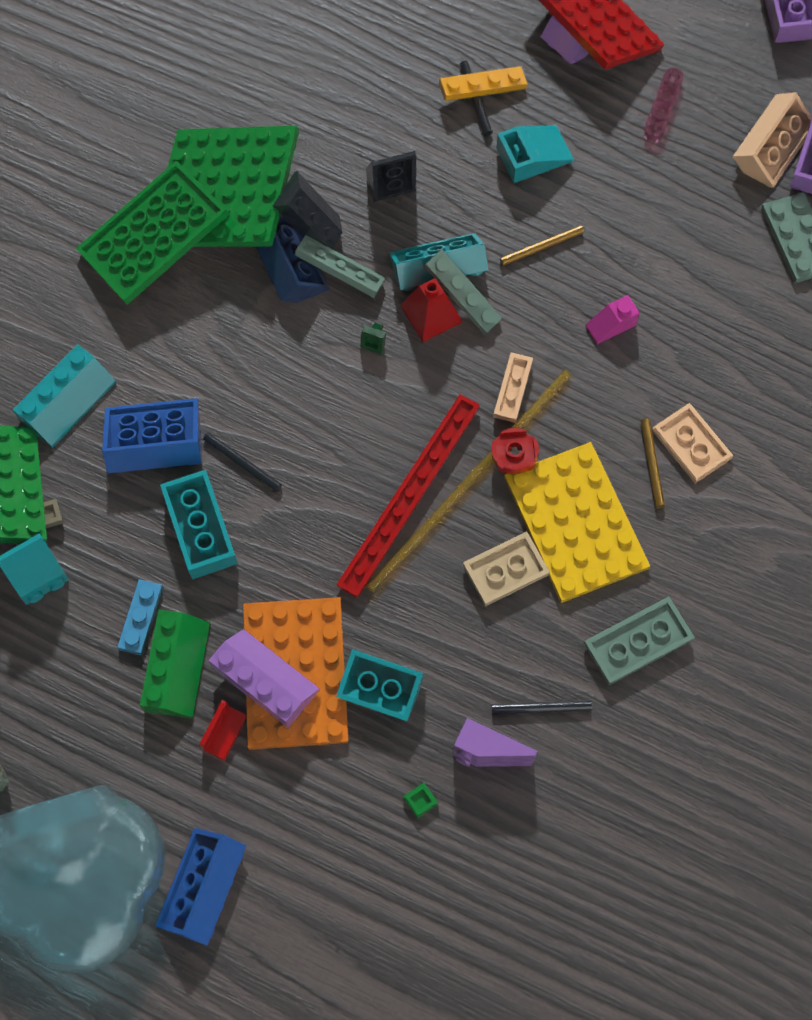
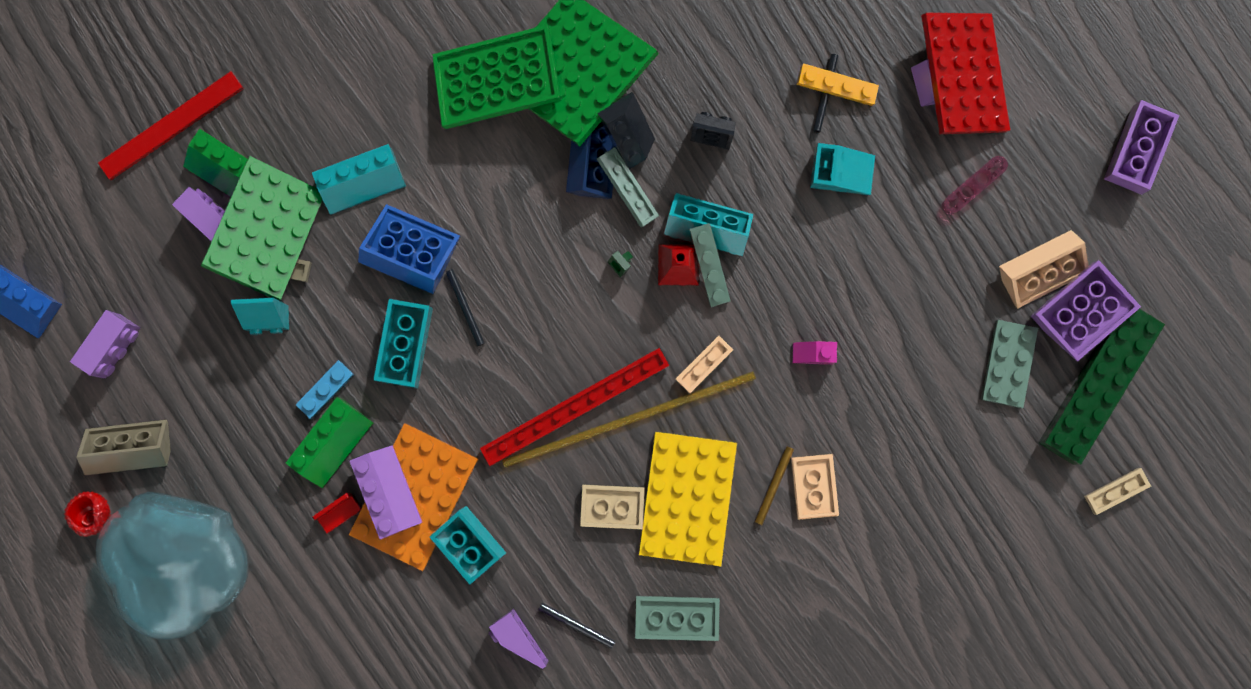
camera: 30 degrees right, 15 degrees up
(201, 886) = (261, 616): blue slope -> none
(420, 800) = (450, 643): green tile -> none
(512, 463) = (683, 416): red plate -> none
(537, 247) = (799, 255): pearl gold bar -> none

